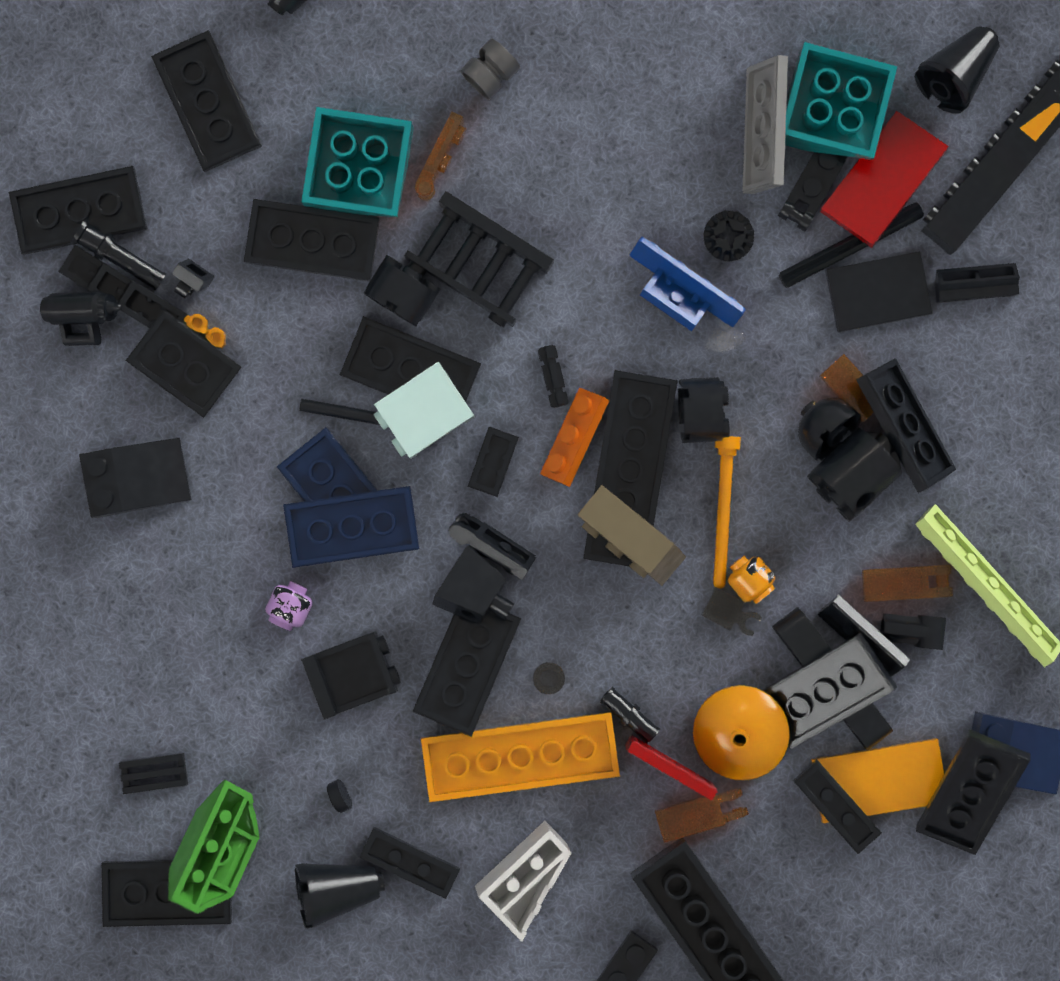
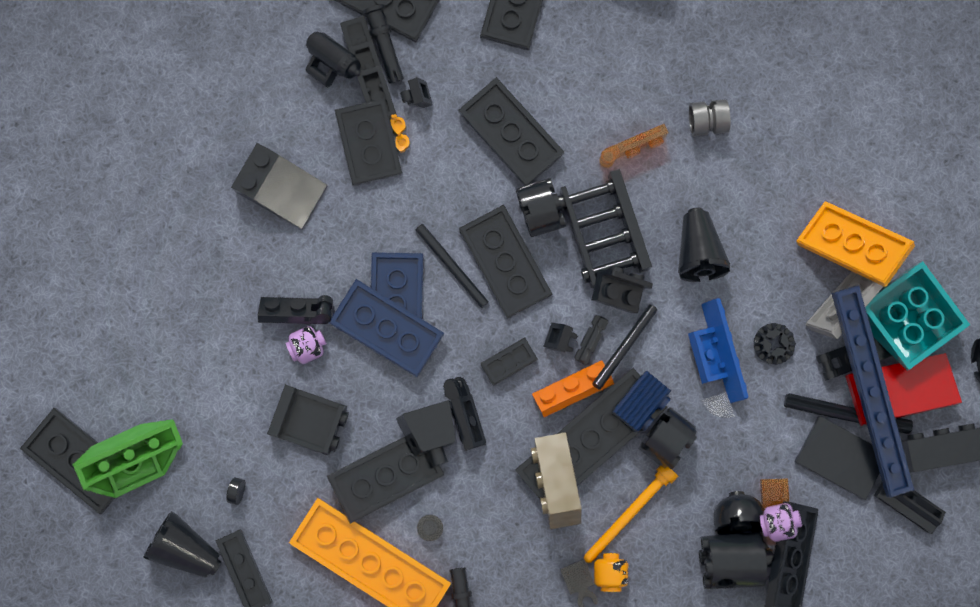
camera: 35 degrees right, 5 degrees down
(126, 777) = (115, 367): black tile -> none
(251, 581) = (295, 310): none -> black plate
(357, 163) = (579, 107): teal slope -> none
(422, 411) = (491, 292): light aqua panel -> none
(521, 399) = (559, 337): none -> black tile
(541, 307) = (619, 289): none -> black bracket
(585, 202) = (701, 248): none -> black cone
(590, 357) = (624, 347): none -> black bar
(649, 396) = (642, 401): none -> dark blue brick
(727, 77) = (855, 243): none -> light orange tile
(855, 206) = (872, 391): none -> dark blue tile
(869, 402) = (780, 522): none -> lavender head

